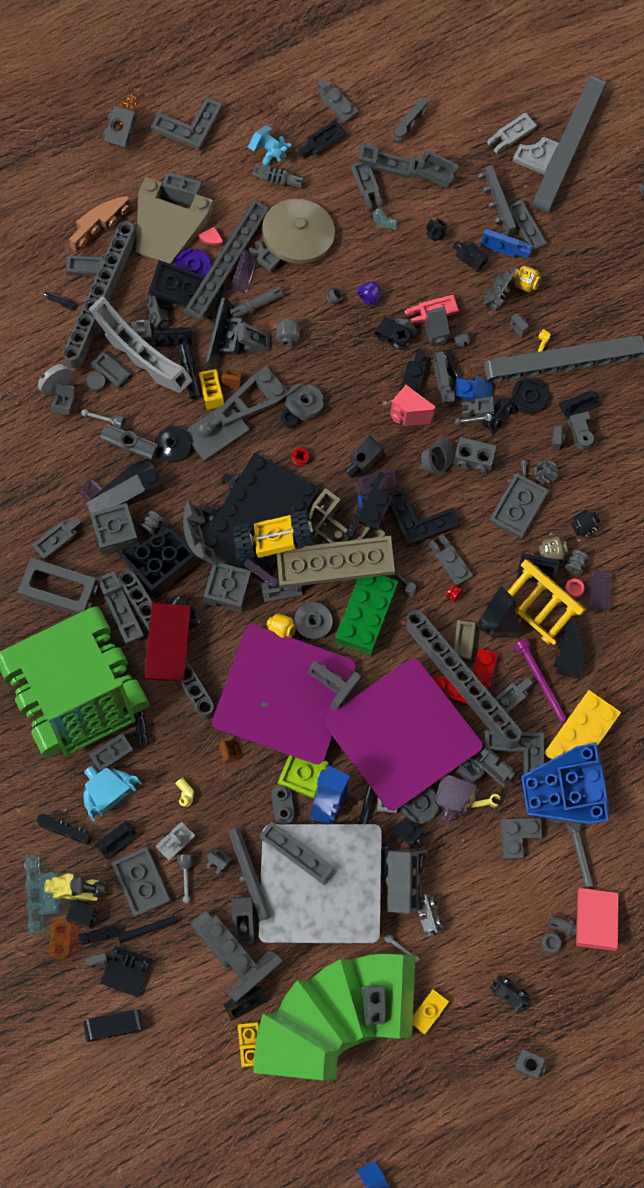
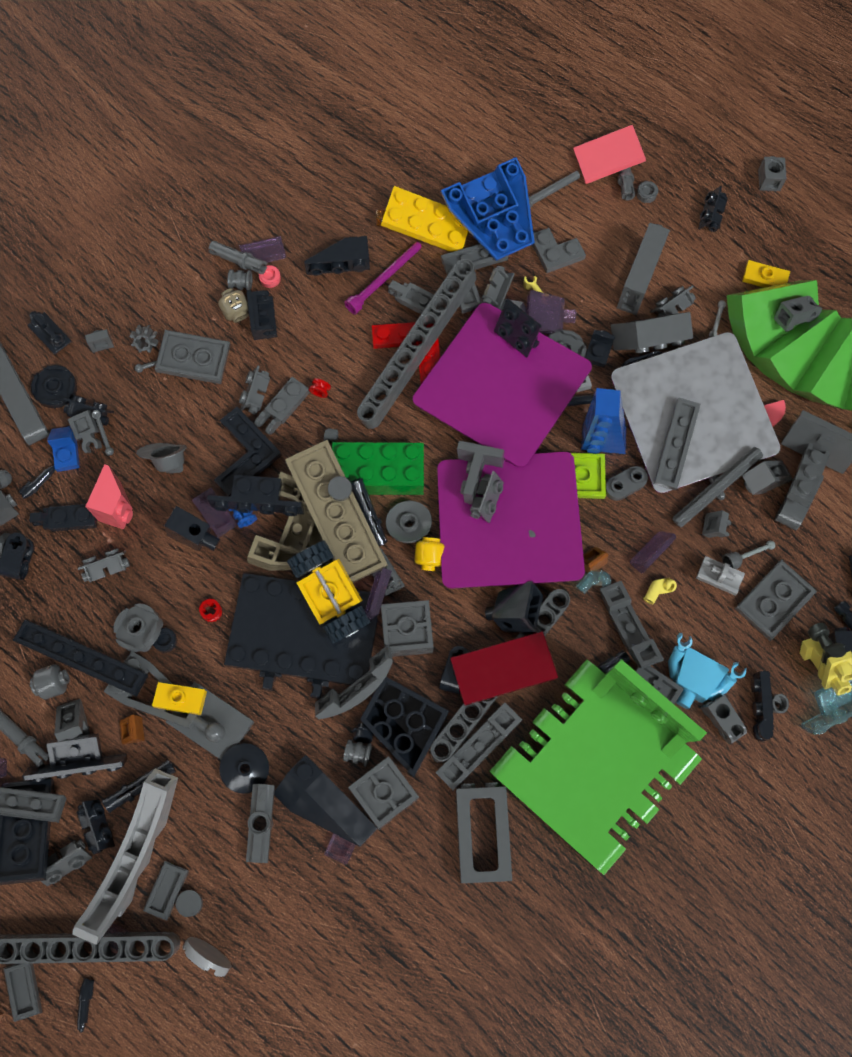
camera: 110 degrees left, 0 degrees up
(57, 538) = (419, 864): dark grey hinge -> none
(57, 839) = (781, 700): none -> dark grey hinge
(63, 399) = (229, 935): dark grey bracket -> none
(65, 795) = (724, 719): none -> dark grey leg
(116, 421) = (237, 851): hinge -> none
(116, 839) = (744, 644): black hinge -> none
(142, 328) = (96, 871): light grey tile -> none
(147, 929) = (821, 573): black bar -> none
(164, 755) = (629, 627): none -> dark grey slope
(210, 672) = (516, 608): none -> black torso
(213, 744) = (598, 578): none -> clear light blue arm
(215, 399) = (172, 740): yellow slope -> none
(218, 800) = (652, 551): none -> clear purple slope
(237, 412) = (179, 698): none -> yellow plate
(297, 357) = (81, 658): none -> black tile
(298, 957) = (775, 411): none -> coral tile
(310, 594) = (364, 501): none -> black pin
(312, 687) = (491, 488): none -> dark grey hinge
(350, 567) = (340, 488): none -> dark grey tile
(364, 384) = (94, 568): none -> dark grey hinge
(443, 378) = (59, 482): dark grey hinge -> none
(447, 751) = (518, 328): none -> black hinge
(464, 538) = (256, 382): none -> dark grey hinge
(464, 639) = (367, 364): dark tan tile -> none
(468, 896) = (643, 268): none -> dark grey piece
(475, 449) = (143, 418): dark grey brick -> none
(500, 617) = (333, 324): black wedge -> none
(559, 595) = (279, 295): yellow fence -> none
(581, 434) = (82, 320): dark grey leg -> none
(585, 523) = (192, 284): black head -> none
(591, 569) = (244, 260): none -> dark grey pin

